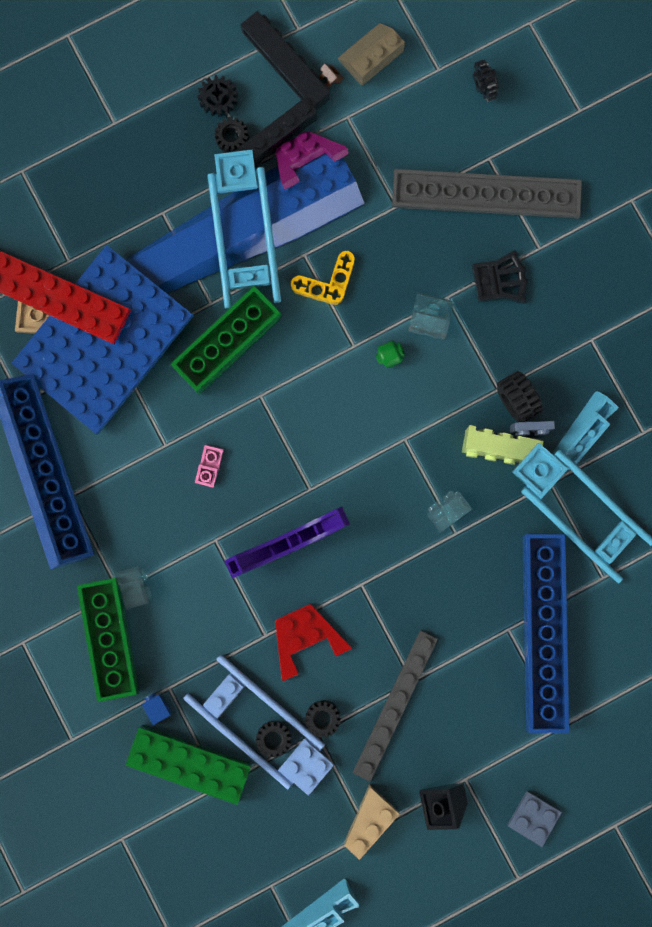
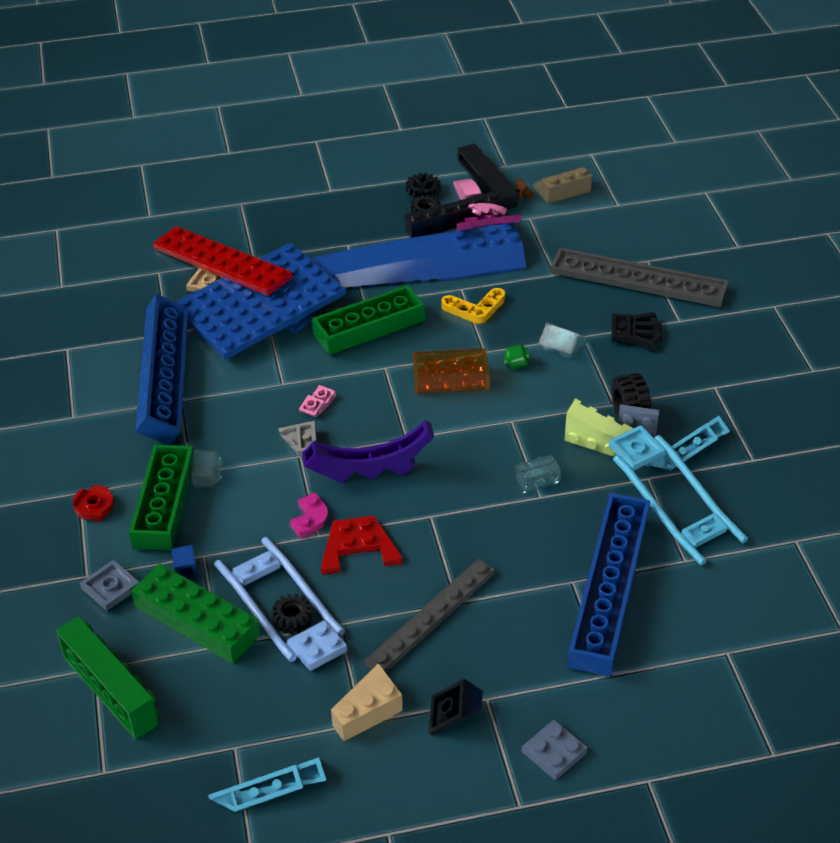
camera: 15 degrees right, 40 degrees down
(36, 648) = (93, 511): none -> red plate
(99, 751) = (109, 585): none -> sand blue plate
(141, 861) = (108, 677): none -> green brick
(211, 521) = (299, 436): none -> light grey wing
(234, 174) = (414, 215): medium azure plate -> none
(256, 615) = (313, 518): none -> dark pink plate
(269, 92) = (466, 188): none -> bright pink slope
(300, 133) = (483, 208): none -> bright pink slope
(323, 731) = (350, 598): black tyre -> none
(331, 395) = (450, 370): none -> clear orange brick
(485, 80) = (655, 207): black gear -> none

